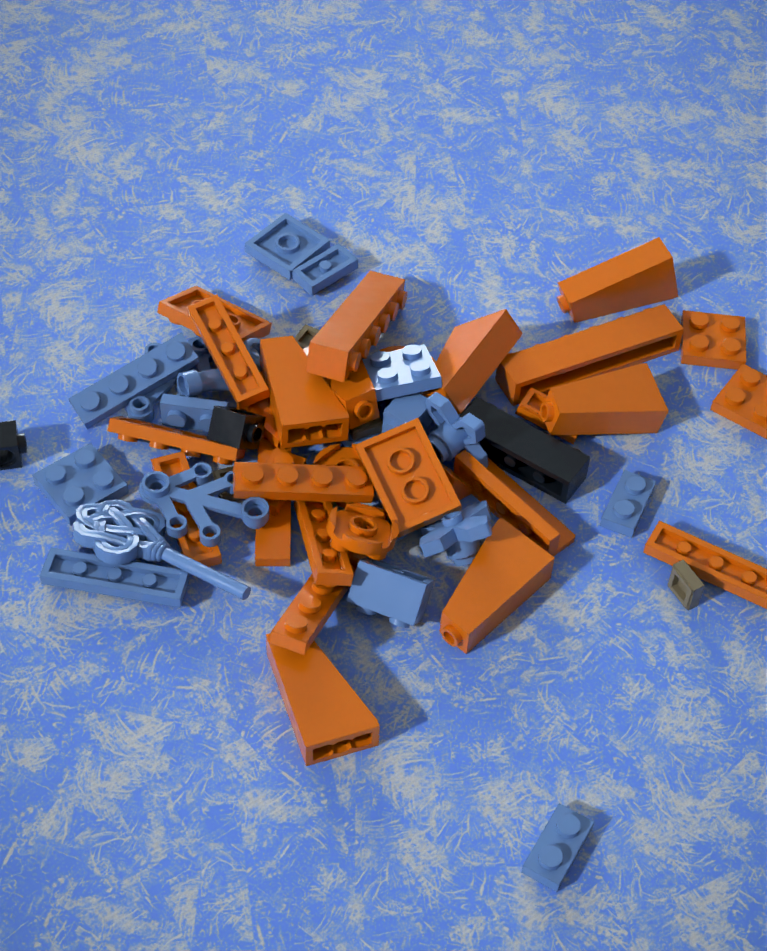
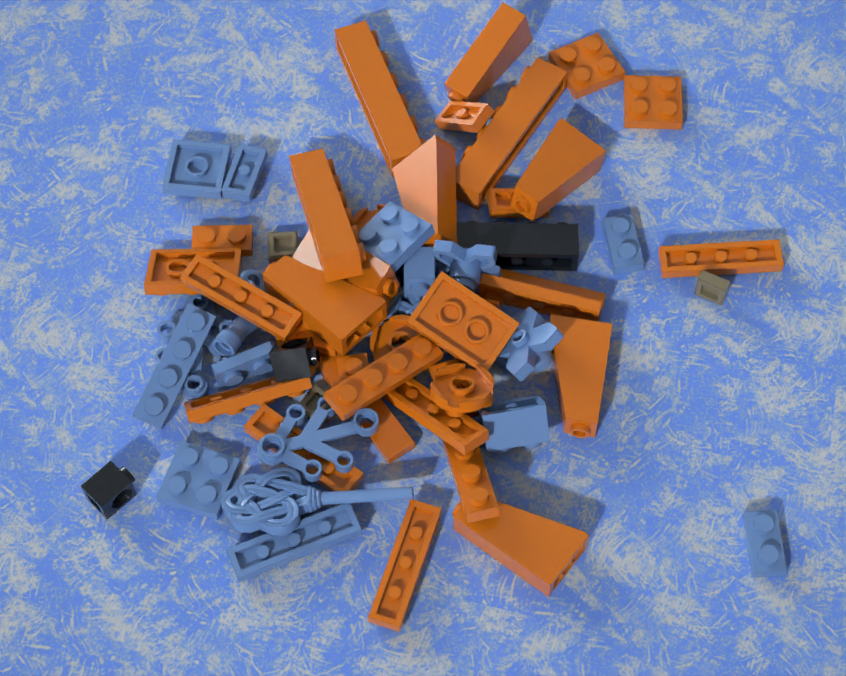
camera: 30 degrees left, 10 degrees up
(193, 655) = (405, 565): none -> orange plate
(278, 314) = (223, 237): none -> orange plate
(495, 259) = (378, 92): none -> orange brick
(556, 319) = (464, 116): none -> orange plate

